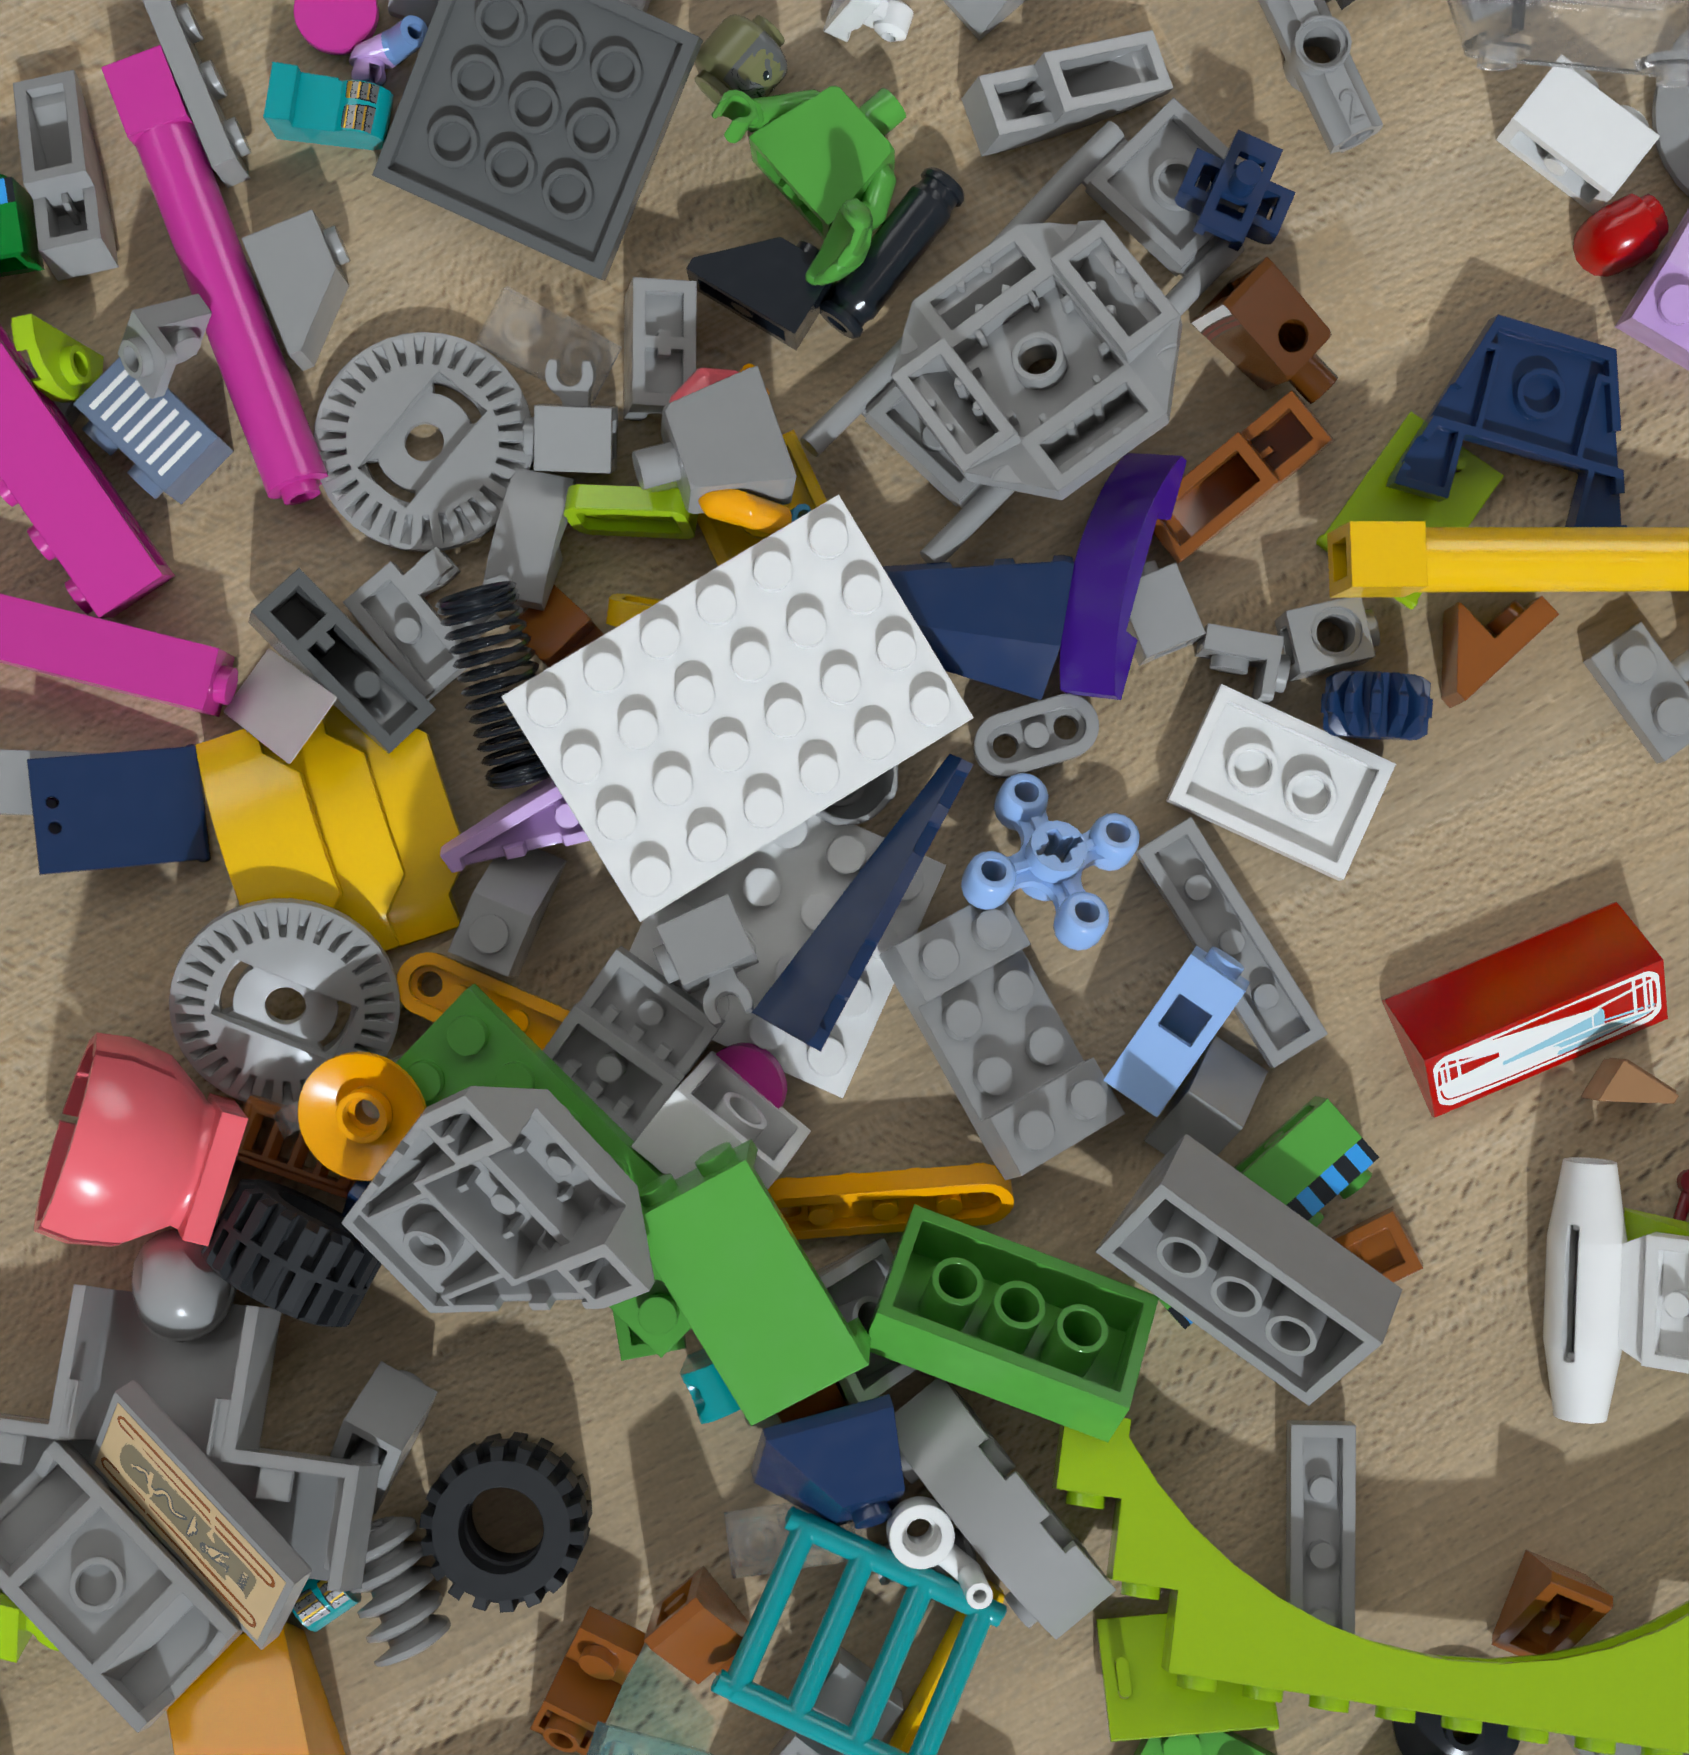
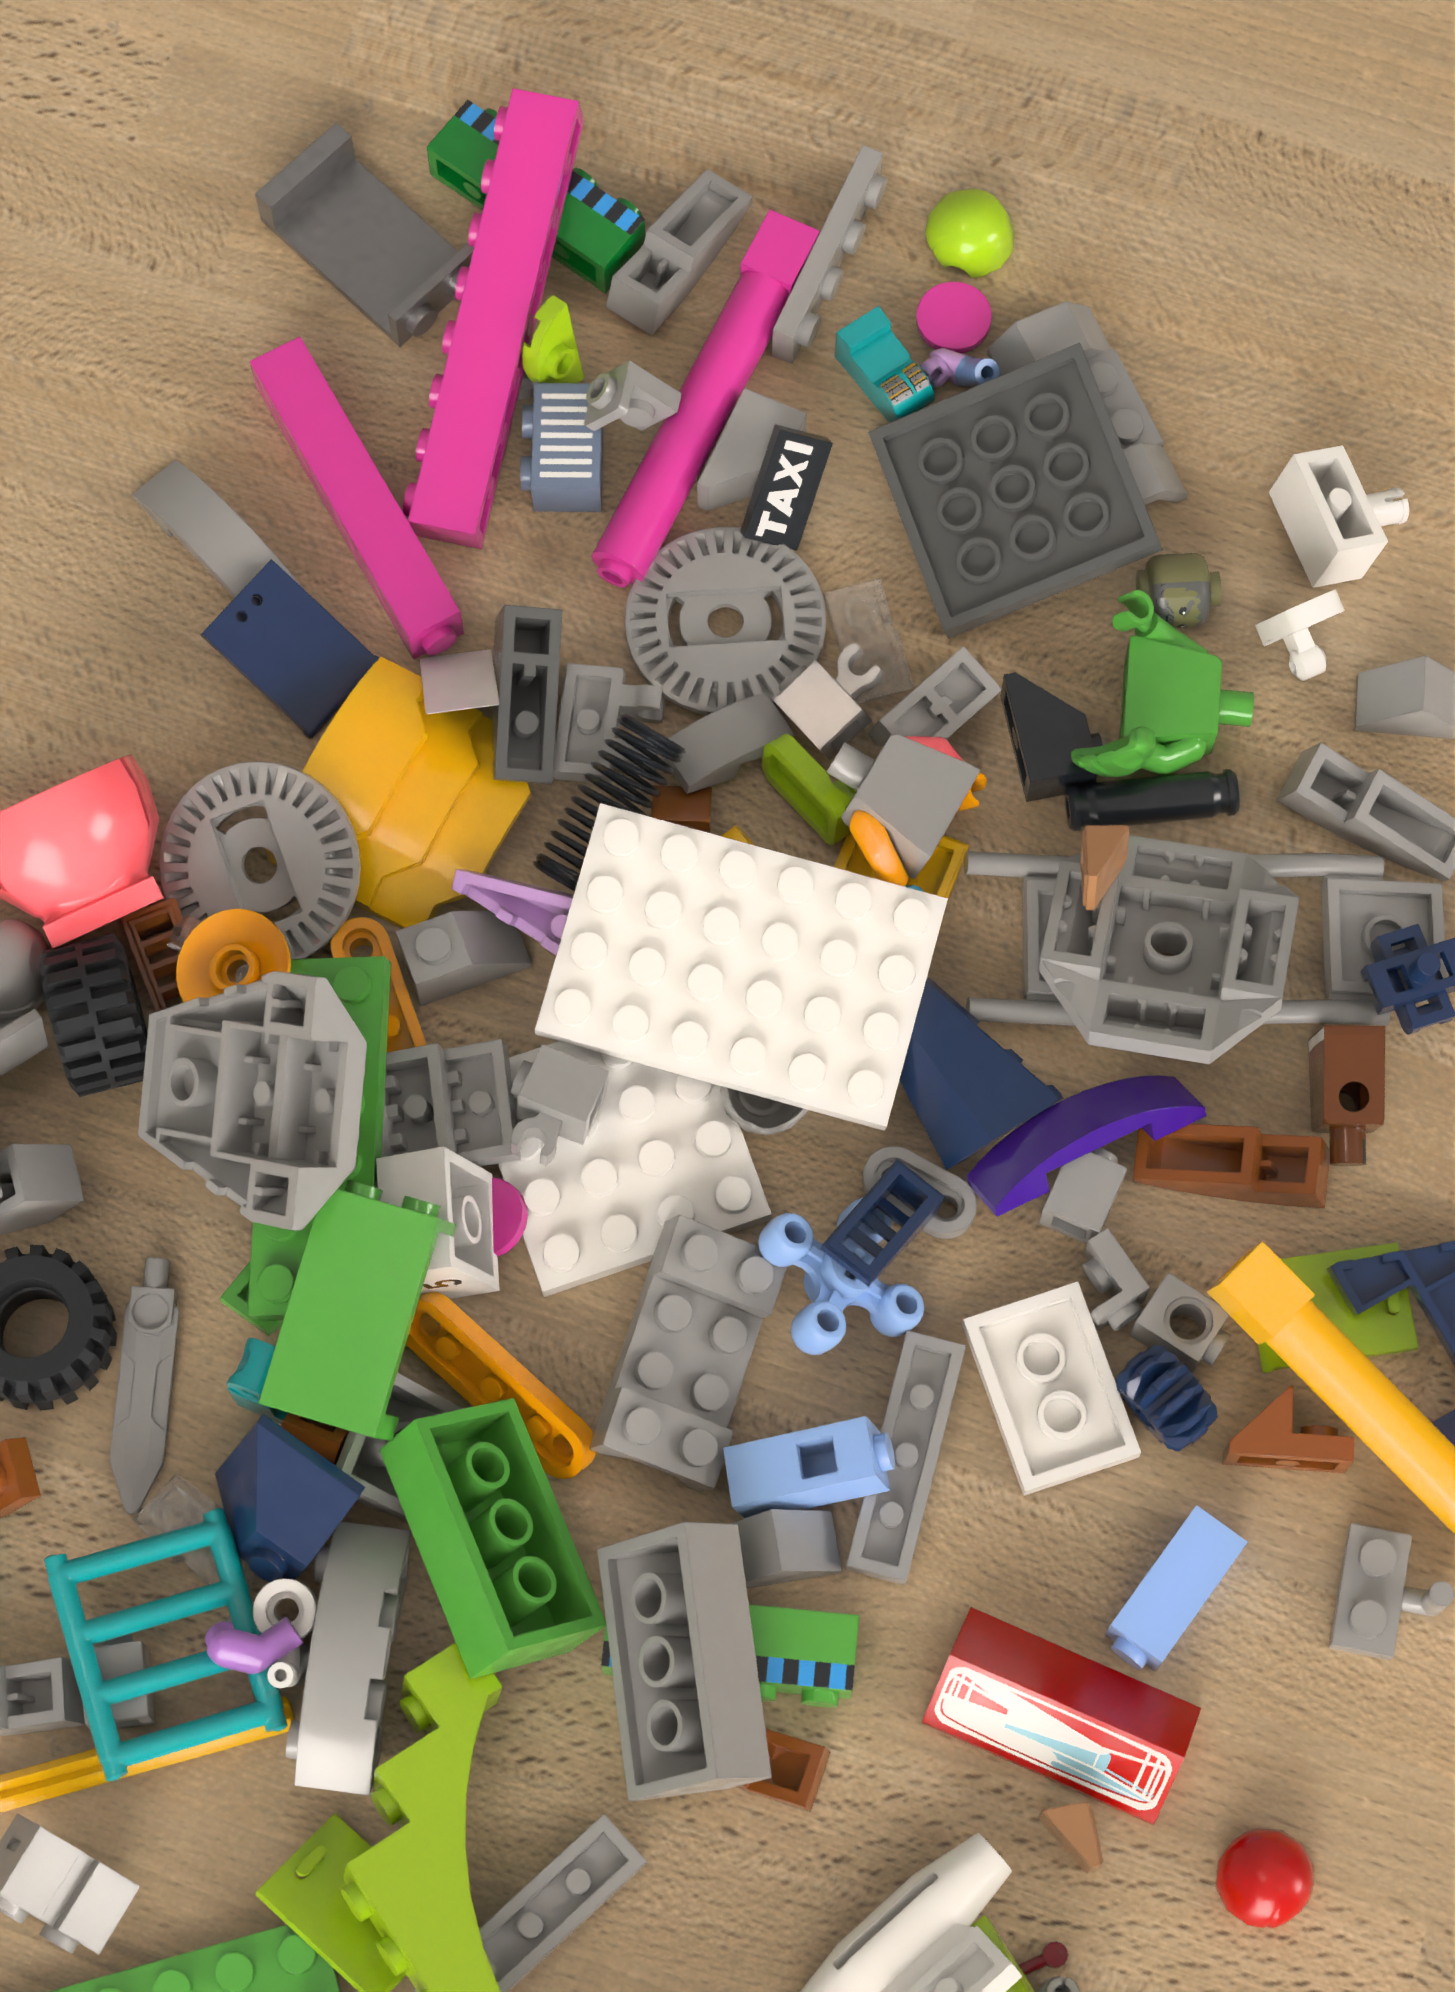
camera: 45 degrees right, 15 degrees down
(359, 286) = (786, 487): none -> black tile
(627, 1467) = (144, 1385): none -> light grey piece
(696, 1627) = (75, 1515): dark orange slope -> none
(831, 961) = (613, 1184): dark blue wedge -> none
(927, 348) = (1101, 860): none -> medium nougat slope
(932, 1597) = (248, 1651): none -> medium lavender arm
(1039, 746) = (907, 1188): none -> dark blue slope
(1520, 839) = (1174, 1590): none -> light blue brick

